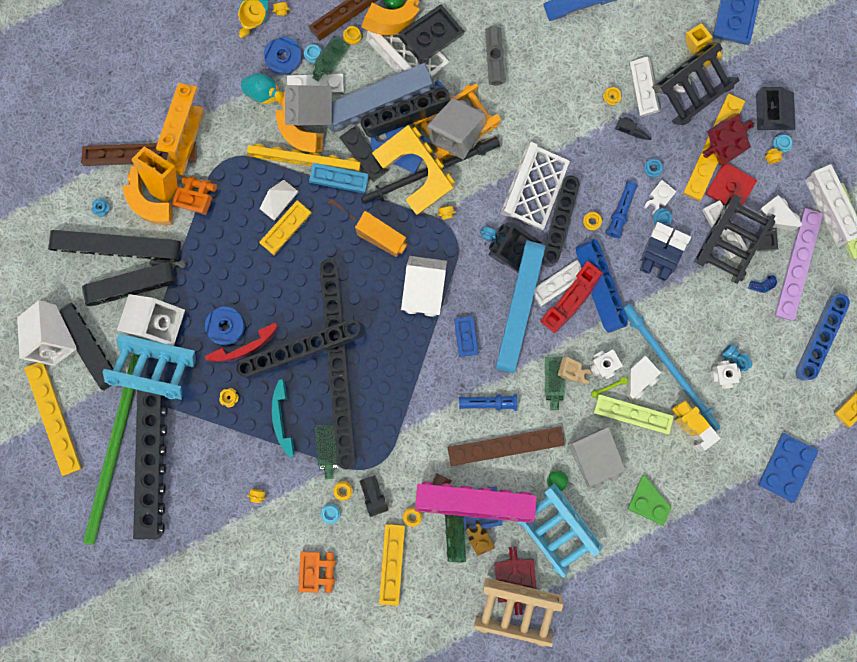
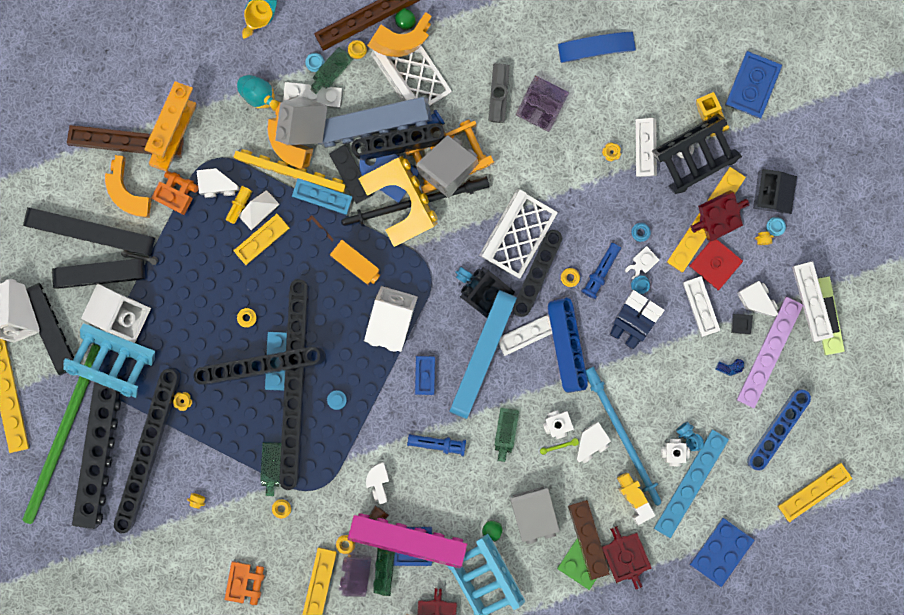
camera: 10 degrees right, 5 degrees up
(105, 207) = (84, 190): dark azure plate -> none
(157, 174) = (140, 168): light orange slope -> none
(193, 460) = (141, 458): none -> black beam
(218, 317) = (182, 320): blue plate -> none
(231, 178) = (214, 182): none -> white slope
(258, 196) = (238, 204): none -> yellow axle
(266, 335) = (227, 345): red slope -> none
(279, 395) = (232, 455): teal slope -> none
(280, 8) = (288, 11): yellow plate -> none
(283, 311) = (251, 313): none -> yellow plate
(285, 66) = (294, 59): blue plate -> none
(319, 362) = (276, 344): none -> dark azure plate
(330, 513) = (266, 529): medium azure plate -> none
(374, 500) = (310, 520): black piece -> none
(382, 373) = (336, 400): none -> dark azure plate
(428, 546) = (356, 575): none -> clear purple slope
(431, 33) = (437, 60): black plate -> none
(433, 444) = (376, 478): none -> white brick
(446, 212) = (425, 246): yellow plate -> none
(480, 539) = (407, 576): pearl gold plate -> none
(506, 446) = (447, 489): reddish brown plate -> none
(538, 60) = (542, 103): none -> clear purple slope
(572, 371) = (524, 426): tan plate -> none
(573, 298) = (536, 354): red slope -> none
(628, 126) = (621, 185): black plate -> none
(633, 414) = (578, 477): yellowish green plate -> none
(655, 475) = (588, 540): none -> reddish brown plate
(694, 487) = (626, 557): none -> dark red plate
(723, 223) = (699, 301): black fence -> none
(745, 404) = (691, 484): none -> dark azure plate

